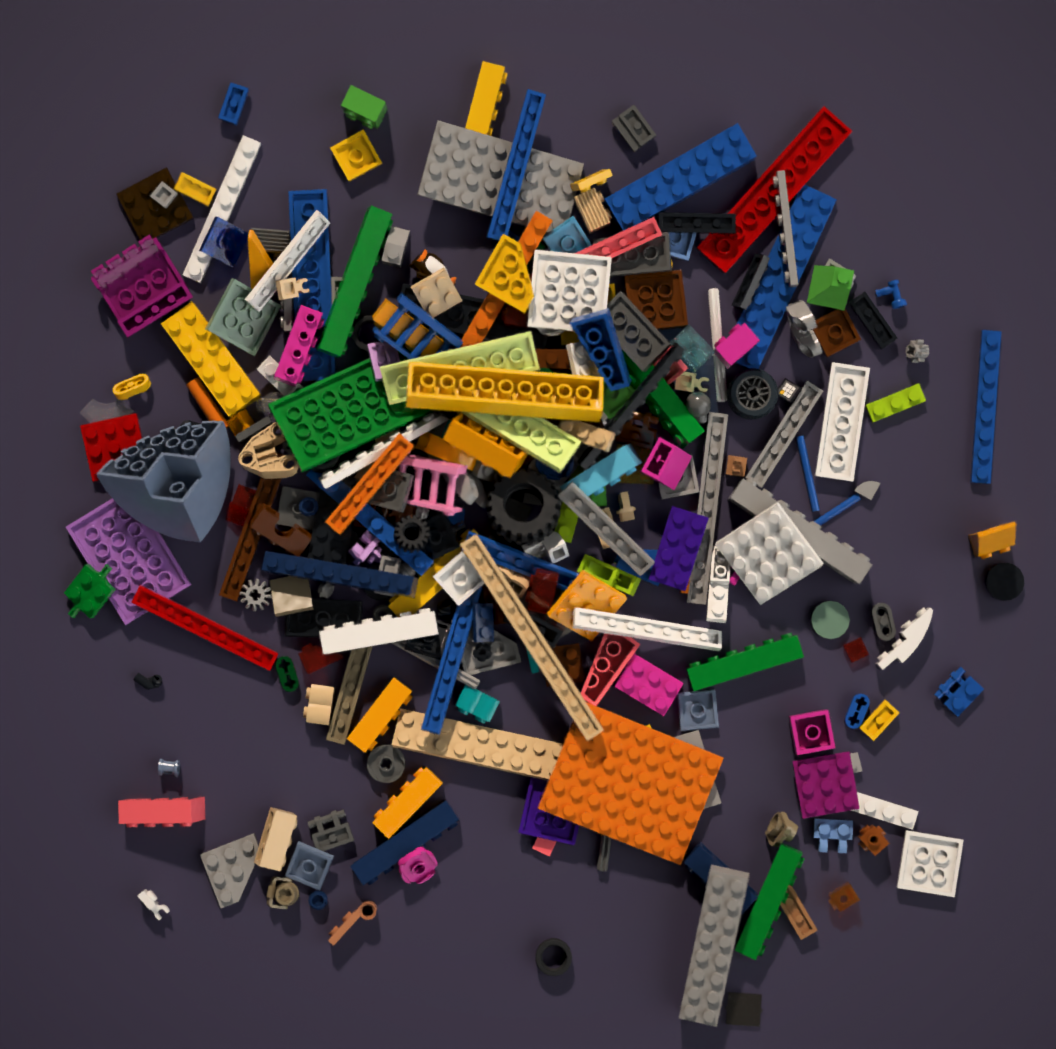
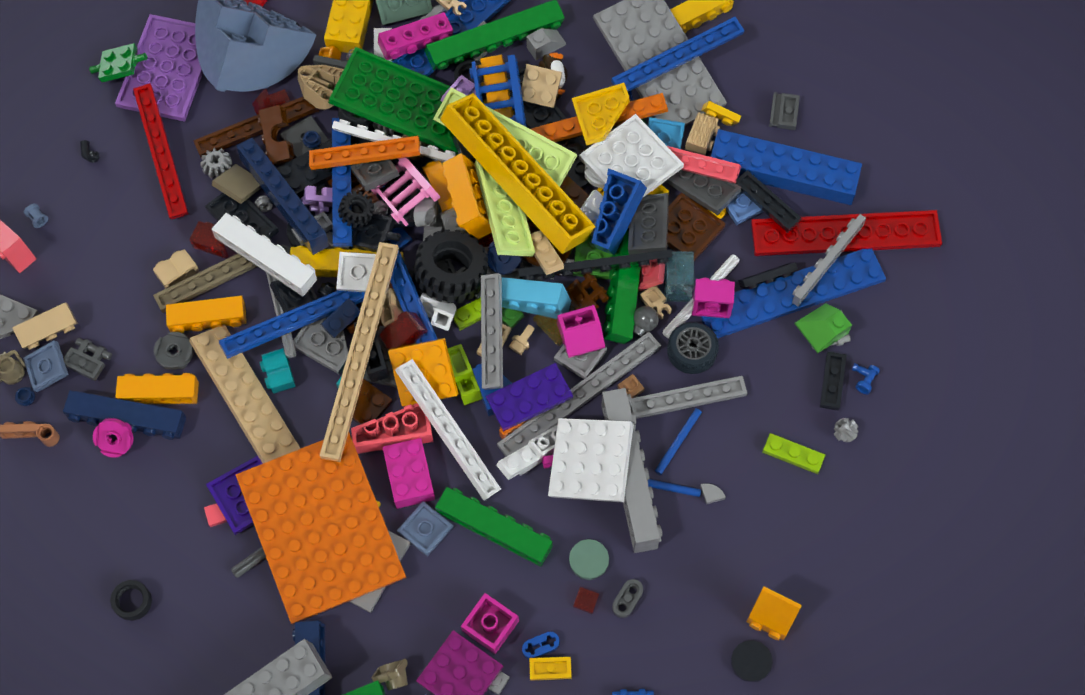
camera: 45 degrees right, 20 degrees down
(205, 401) = (320, 25): orange piece -> none
(283, 675) = (179, 232): dark green beam -> none
(477, 652) = (322, 340): black plate -> none
(515, 317) = (577, 145): clear red brick -> none
(788, 391) = (721, 371): slope -> none
(802, 325) = (774, 335): light grey connector -> none
(835, 332) = (796, 363): reddish brown plate -> none
(842, 422) = (739, 428): white plate -> none
(912, 633) = (640, 630): white slope -> none
(985, 407) = (860, 520): blue plate -> none

